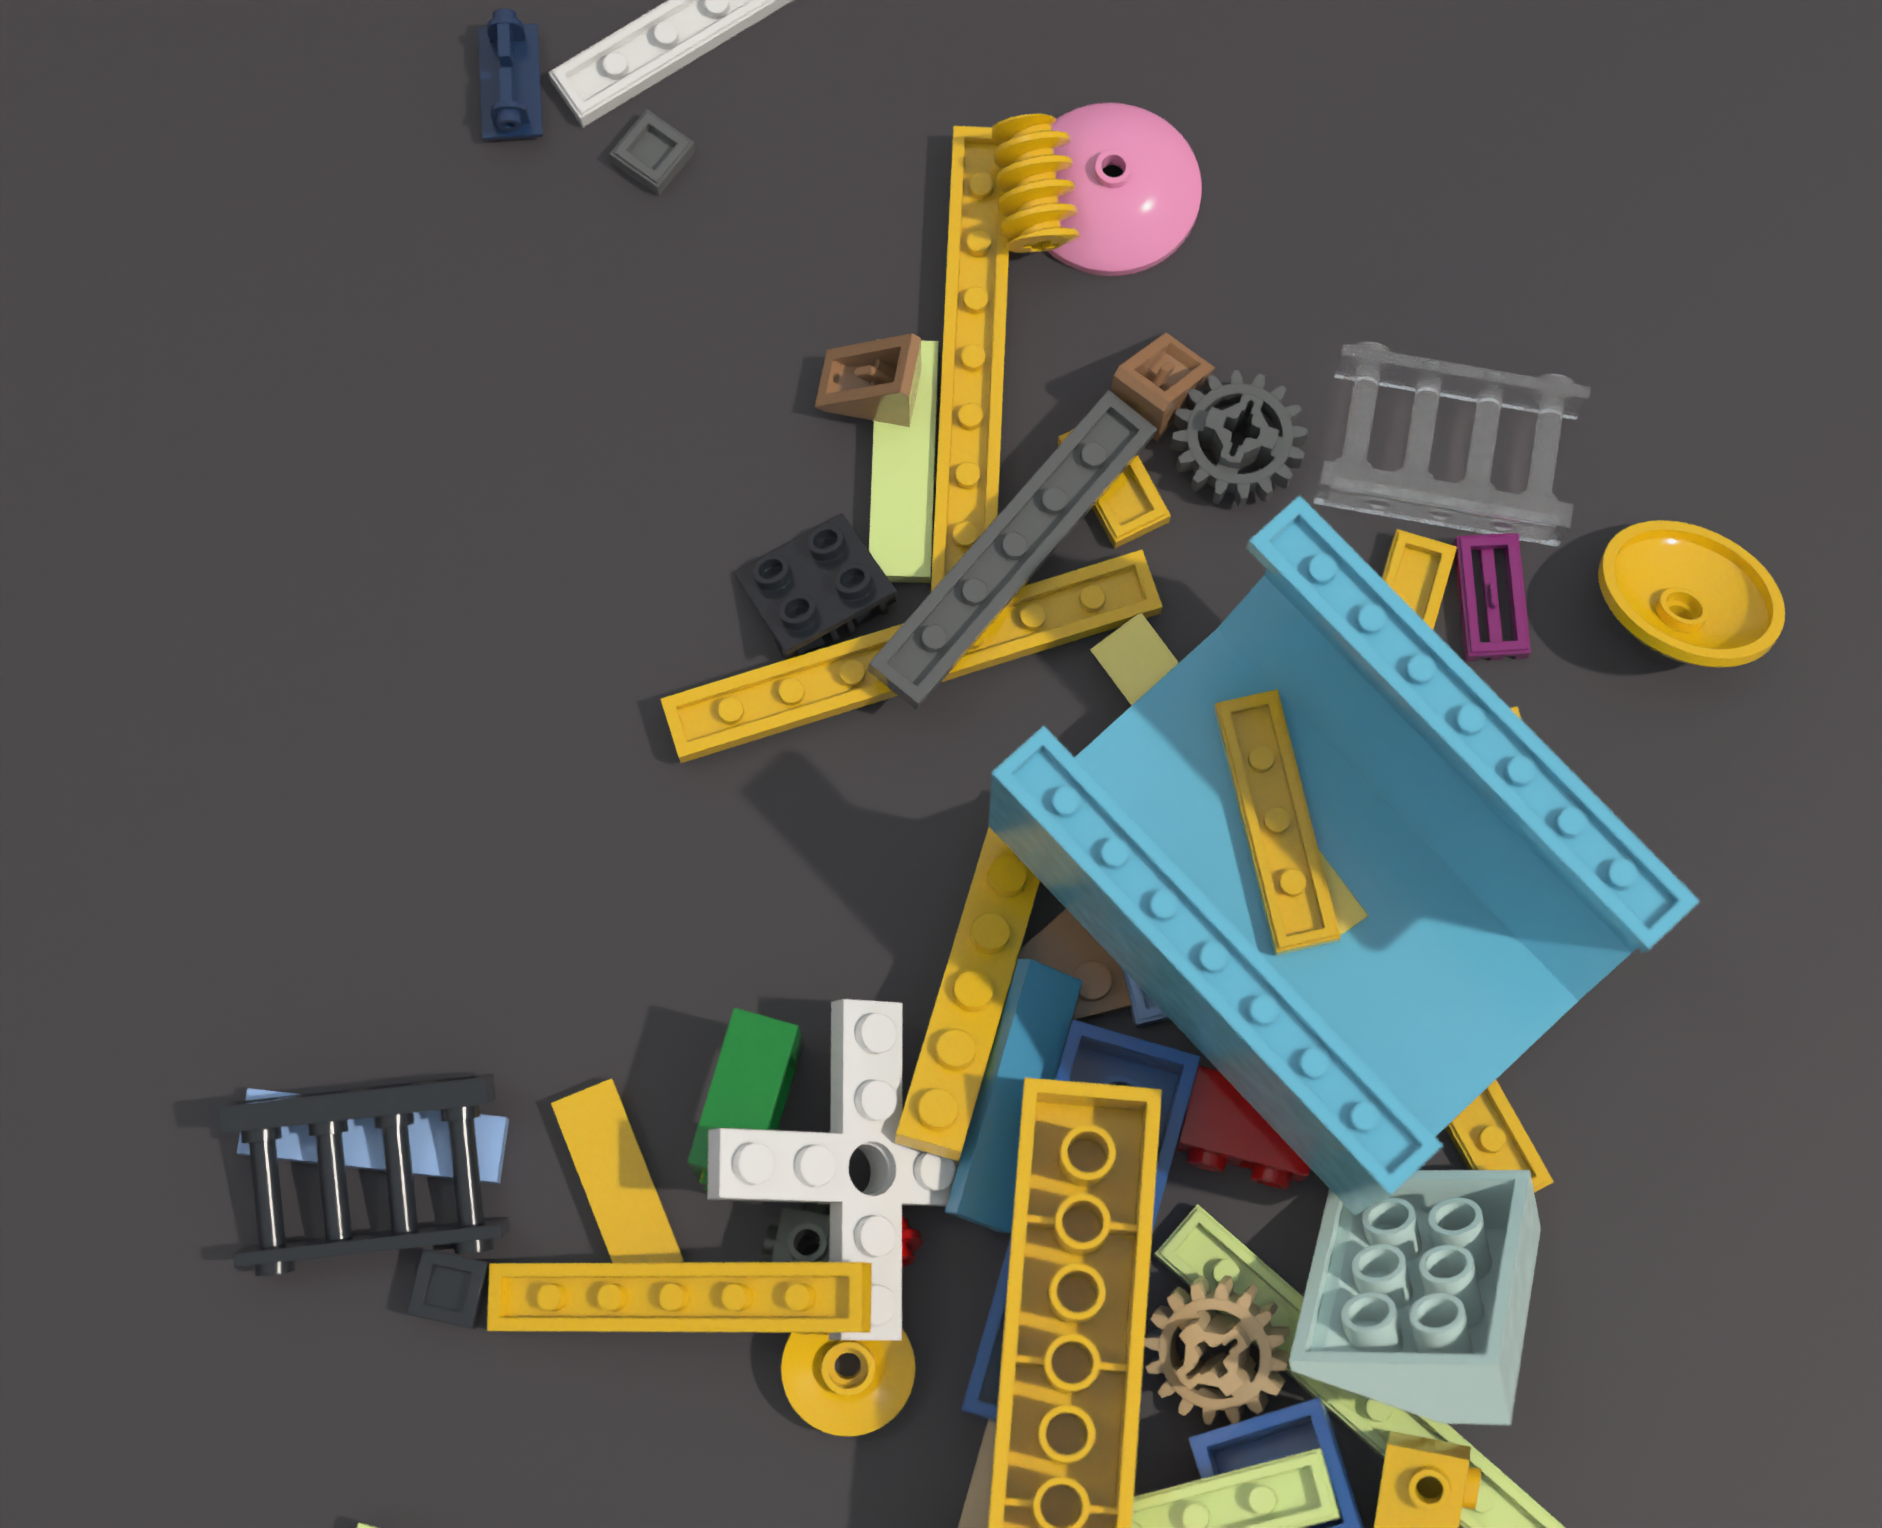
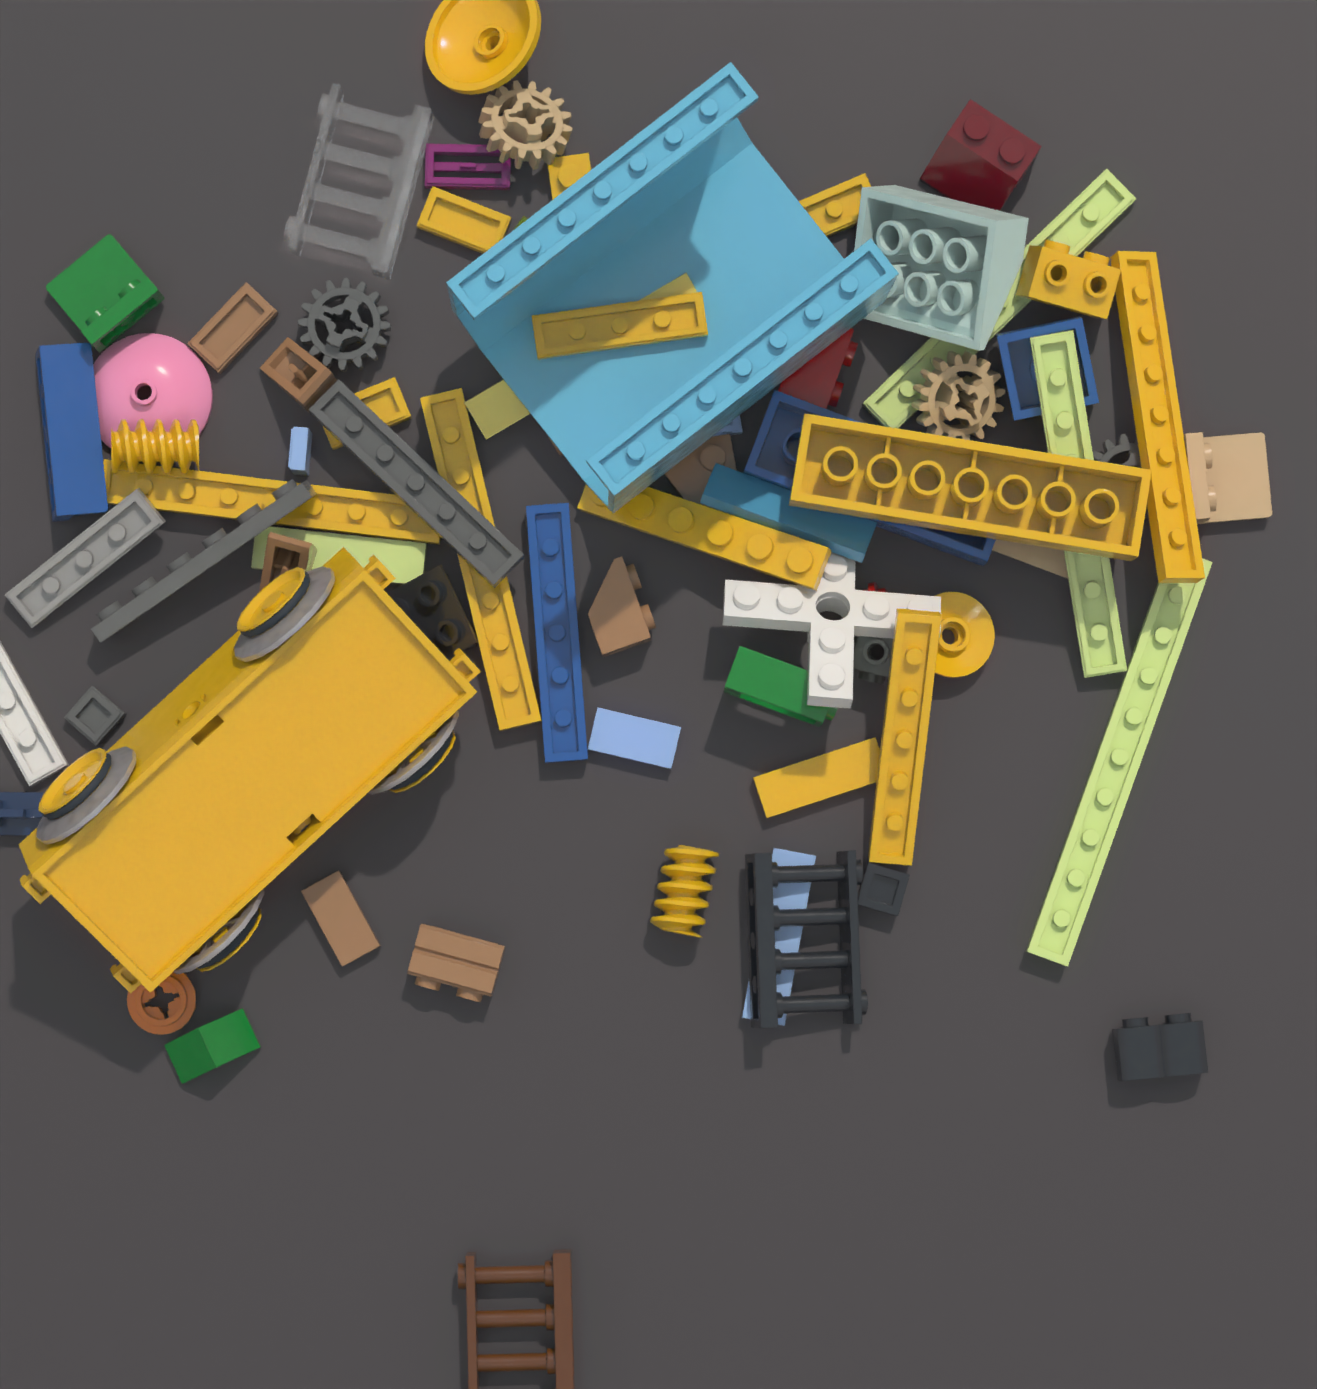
camera: 85 degrees left, 10 degrees up
(192, 345) = (212, 1045): none -> green slope
(228, 261) = (152, 1018): none -> orange gear
(317, 664) = (455, 961): none -> medium nougat brick
(378, 502) = (340, 918): none -> medium nougat tile
(433, 987) = (683, 890): none -> yellow piece
(654, 396) = (208, 793): none -> yellow piece
(662, 899) = (634, 738): none -> light blue tile
(809, 773) = (557, 632): none -> blue plate
(848, 855) = (616, 613): none -> medium nougat slope
(873, 117) = (85, 557): none -> light grey tile
(897, 283) = (216, 548): none -> dark grey plate
(1049, 391) = (300, 450): none -> light blue tile
(1051, 80) = (71, 430): none -> blue panel
(1219, 292) = (233, 328): none -> medium nougat tile
(1249, 115) = (104, 292): none -> green bracket
(1563, 667) = (525, 125): none -> tan gear
(1595, 1359) = (980, 159): none -> dark red slope

